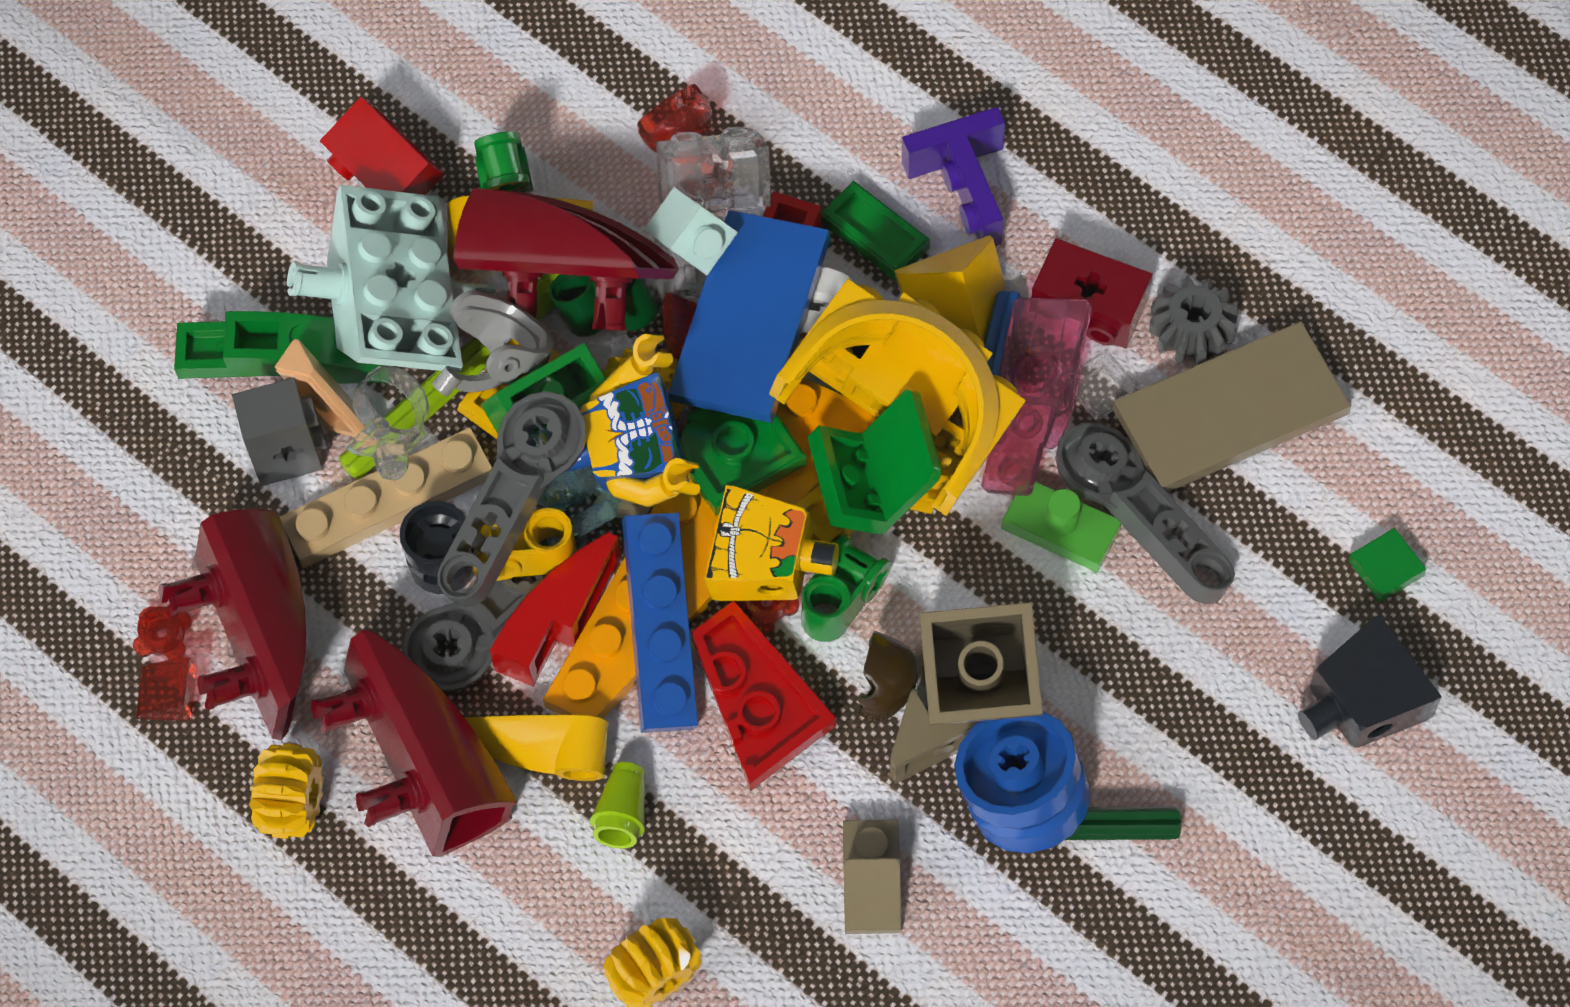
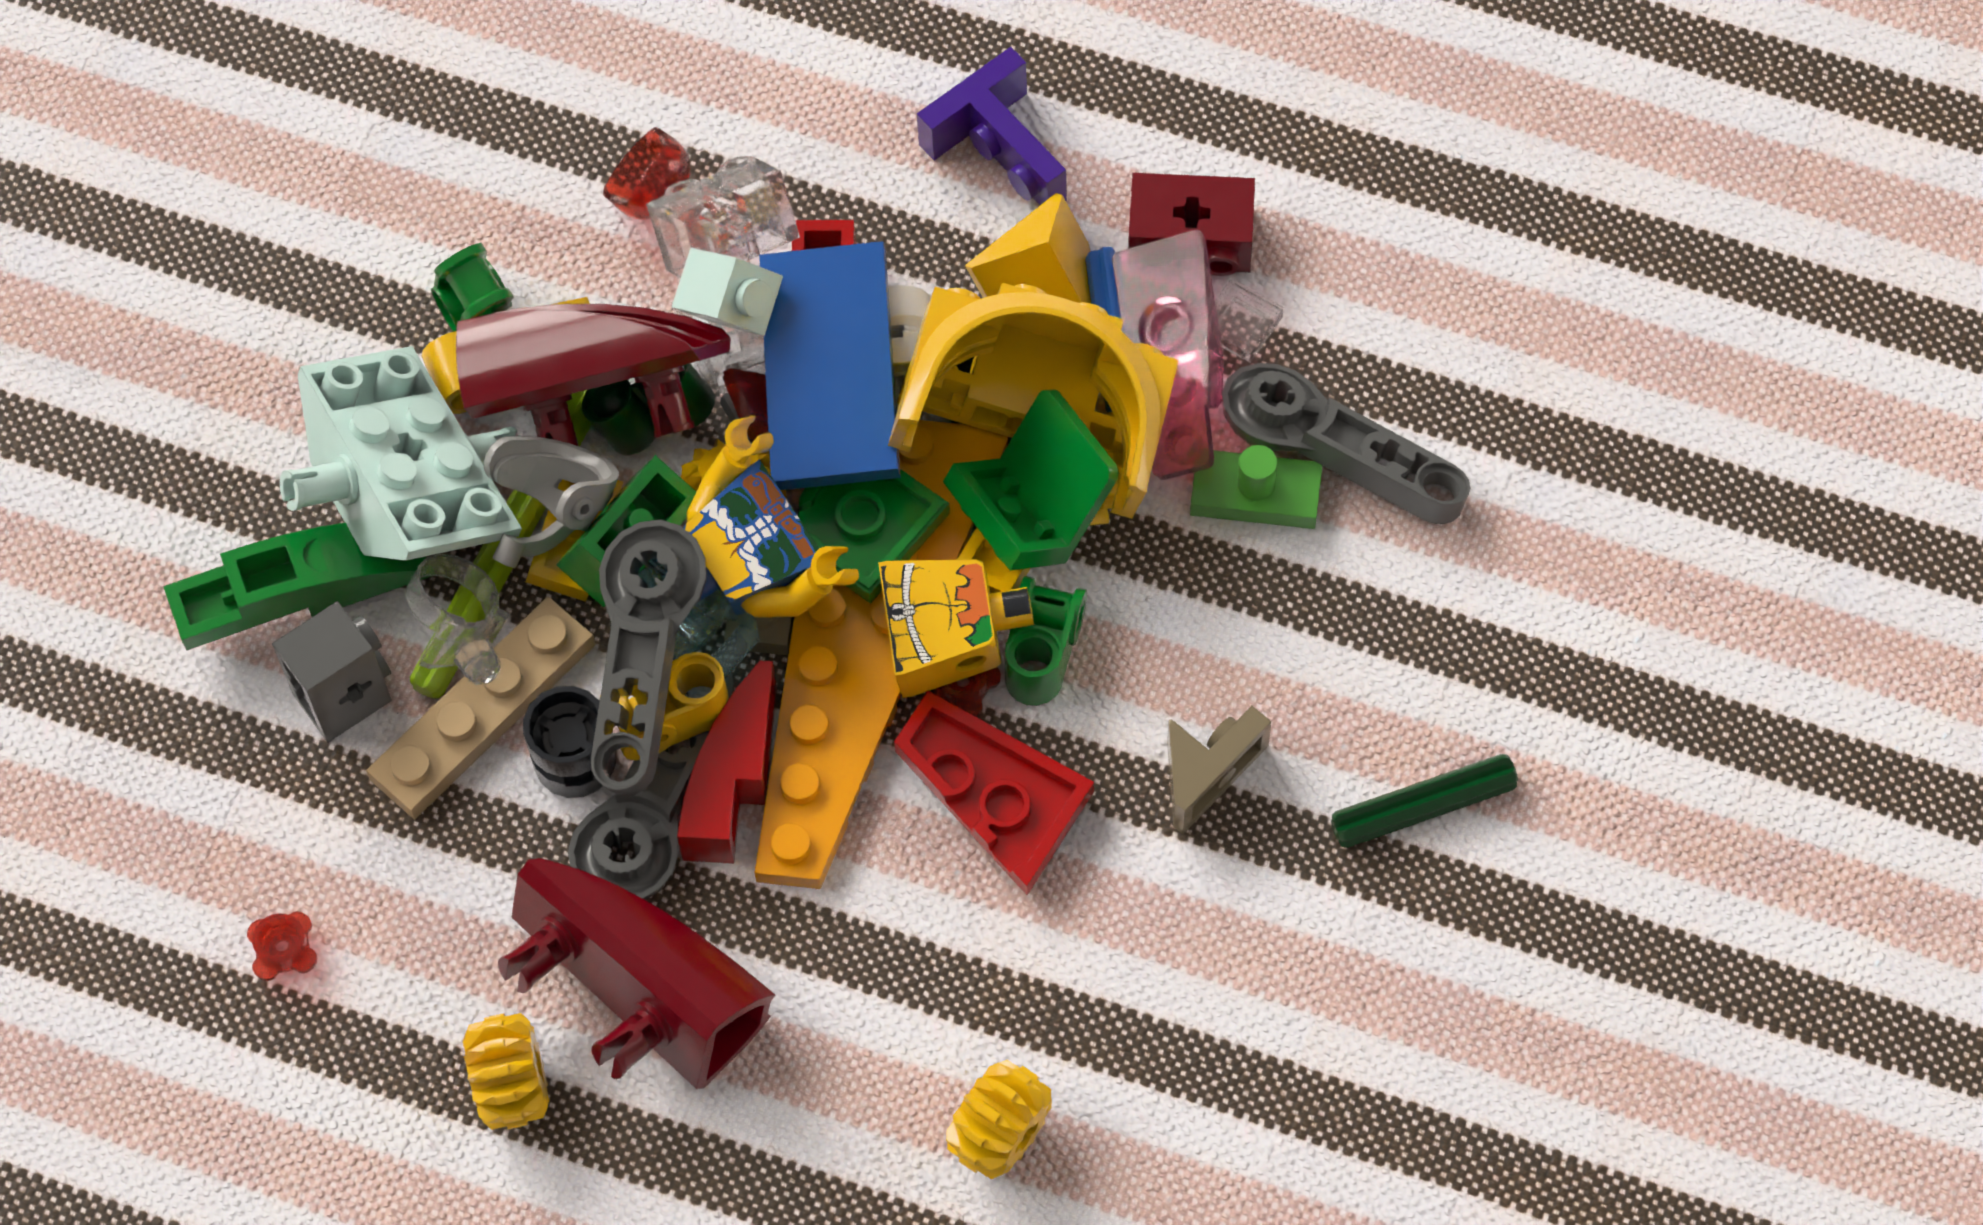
camera: 20 degrees left, 0 degrees up
(167, 690) = (313, 1008): clear red slope -> none
(260, 602) = (390, 877): dark red piece -> none
(331, 402) = (392, 627): light nougat slope -> none
(378, 153) = (319, 319): red brick -> none
(547, 743) = (781, 919): yellow piece -> none
(620, 809) = (891, 962): lime cone -> none
(659, 623) = (855, 742): blue plate -> none
(871, 877) = (1200, 943): dark tan slope -> none
(874, 230) = (920, 229): green tile -> none
(891, 674) = (1136, 718): dark brown hair -> none
(980, 664) = (1240, 666): dark tan slope -> none
(1023, 782) = (1330, 778): blue wheel -> none
(1196, 339) = (1294, 221): dark grey gear -> none
(1231, 407) = (1393, 299): dark tan tile -> none
(1369, 689) = (1662, 556): black torso -> none
(1387, 565) = (1627, 416): green tile -> none

